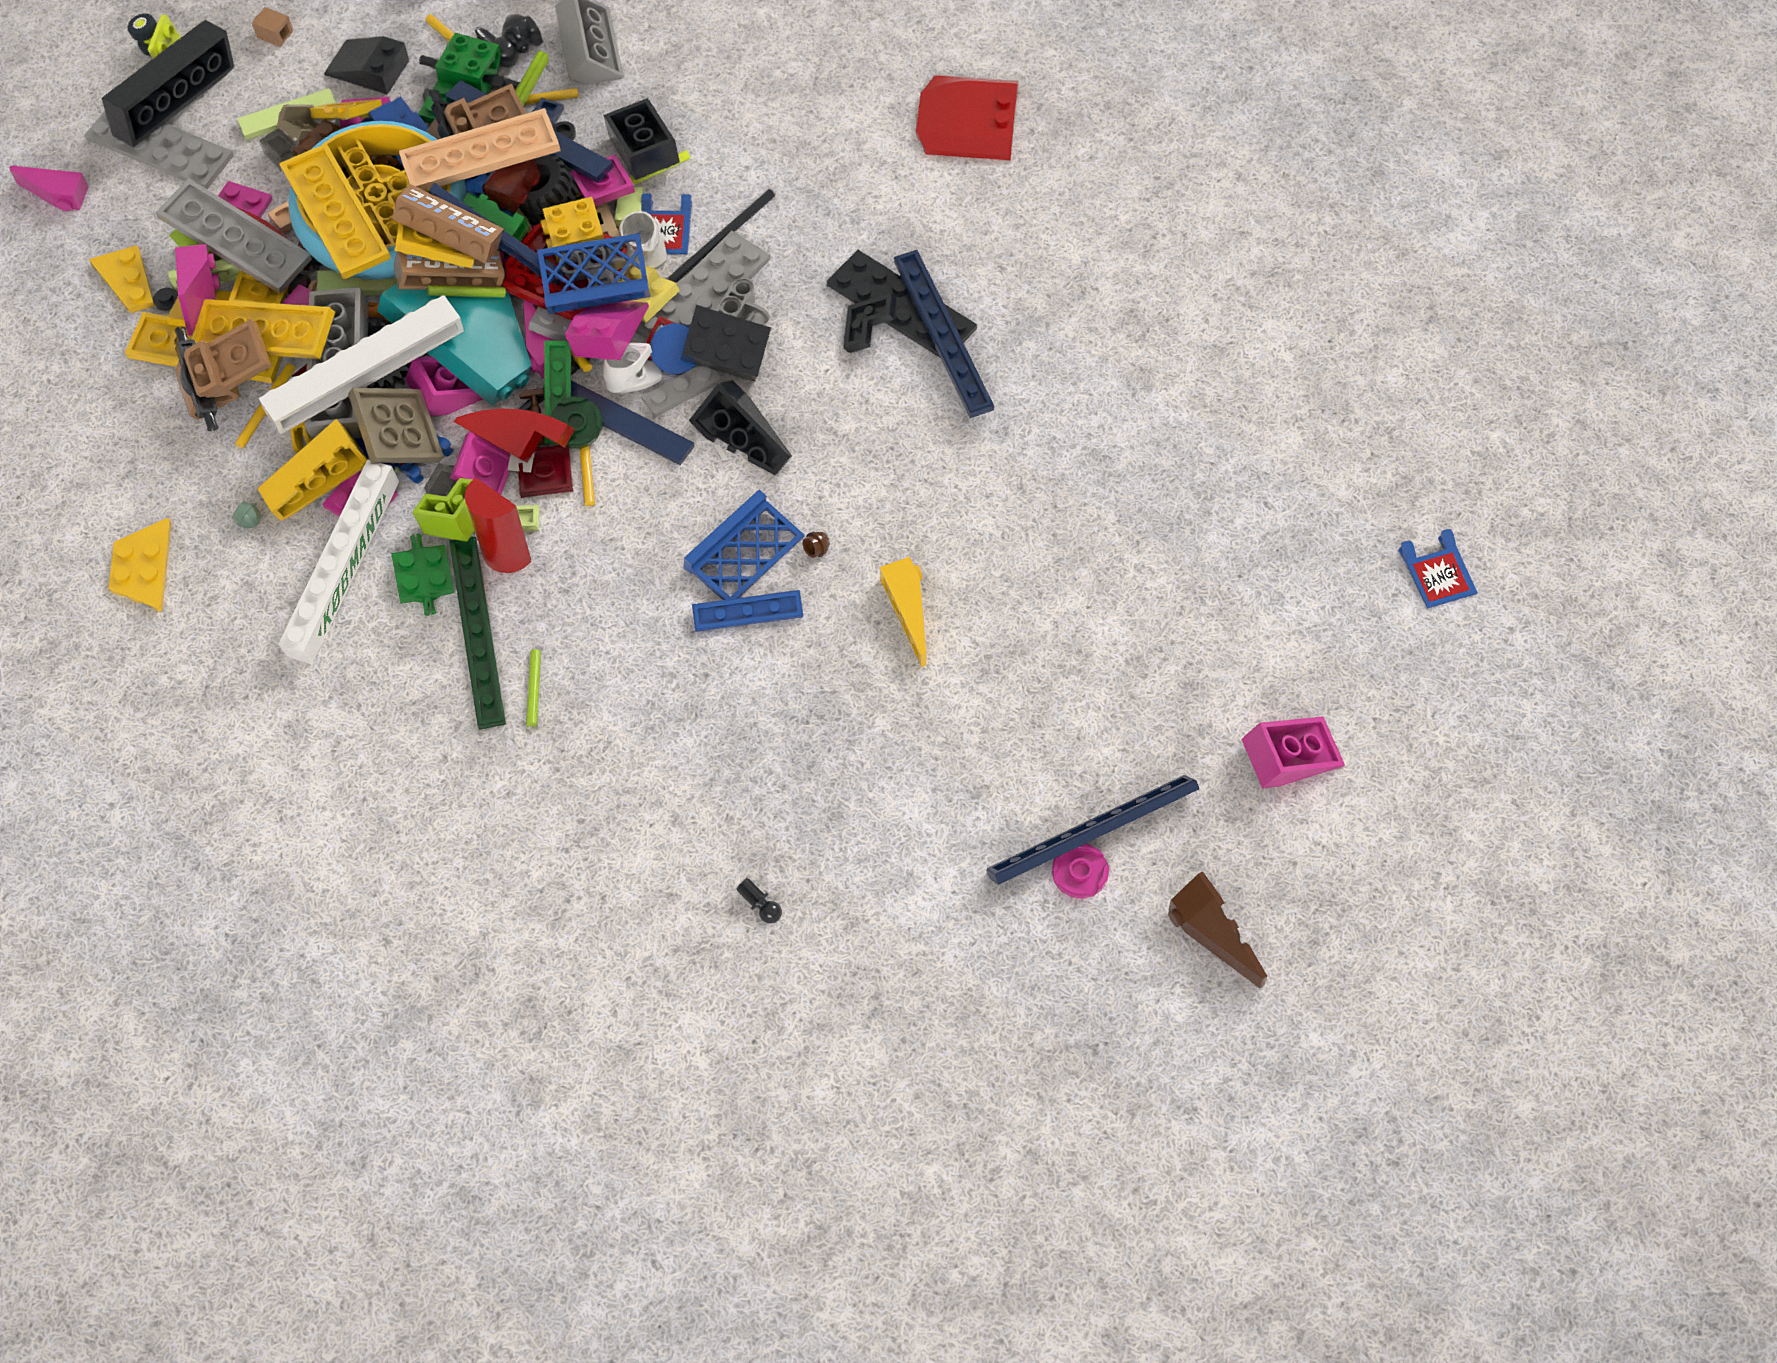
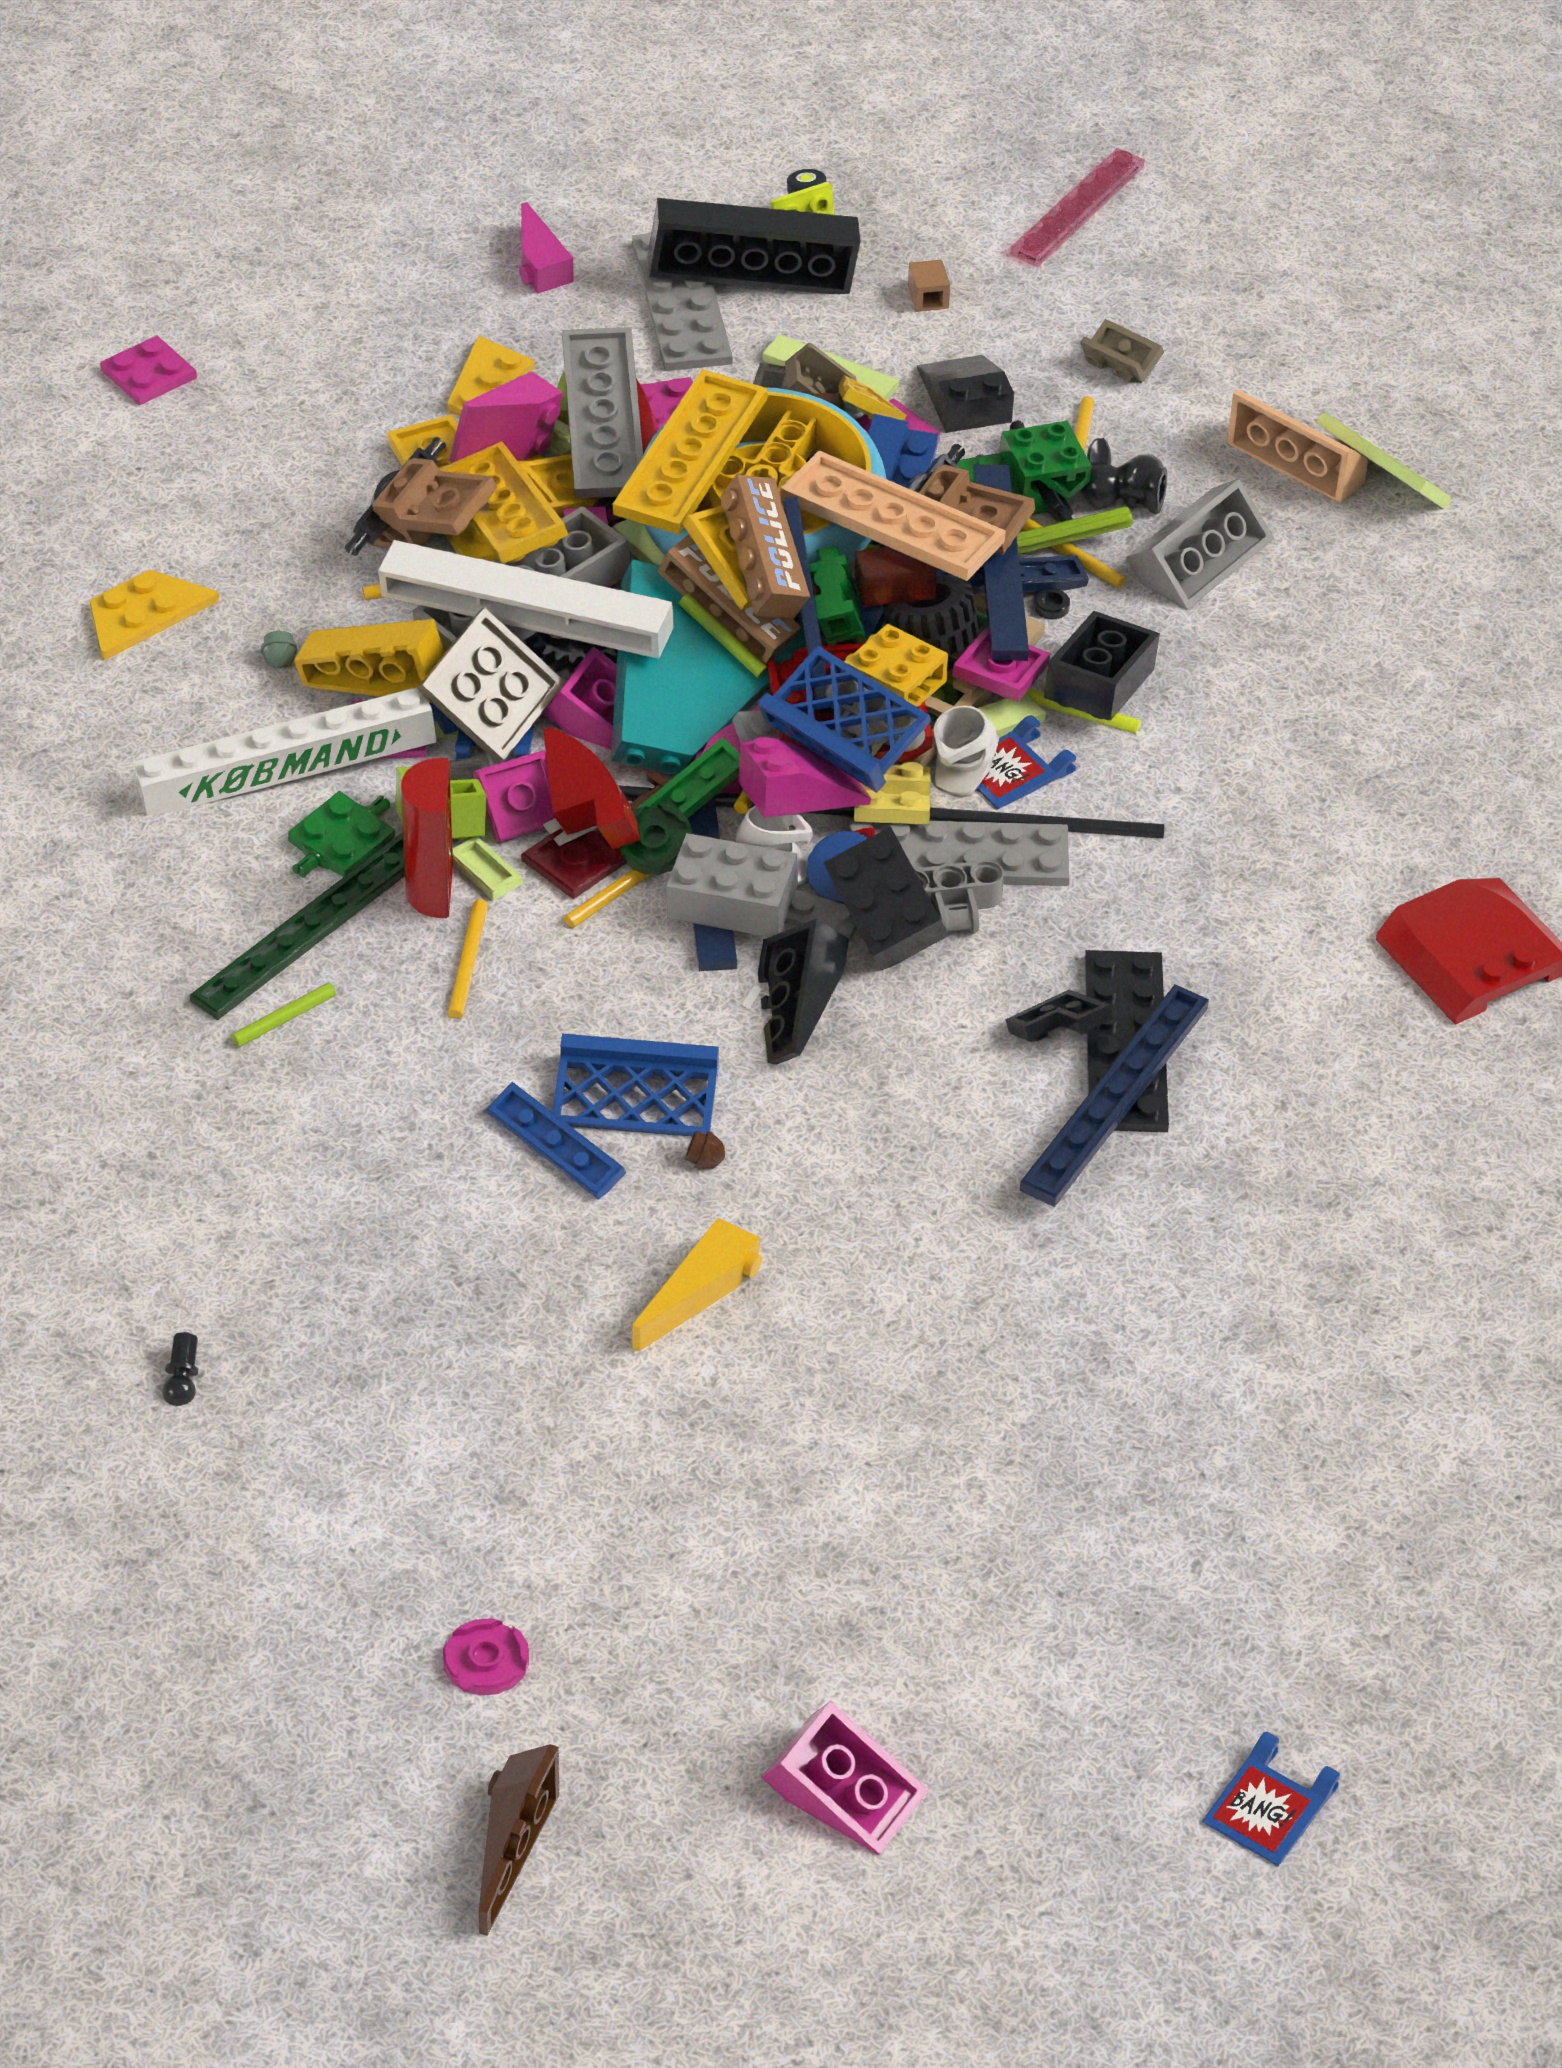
camera: 50 degrees right, 15 degrees down
(573, 570) = (467, 959): none -> yellow bar
(647, 408) = (732, 885): none -> light grey brick
(1092, 829) = (551, 1633): dark blue tile -> none

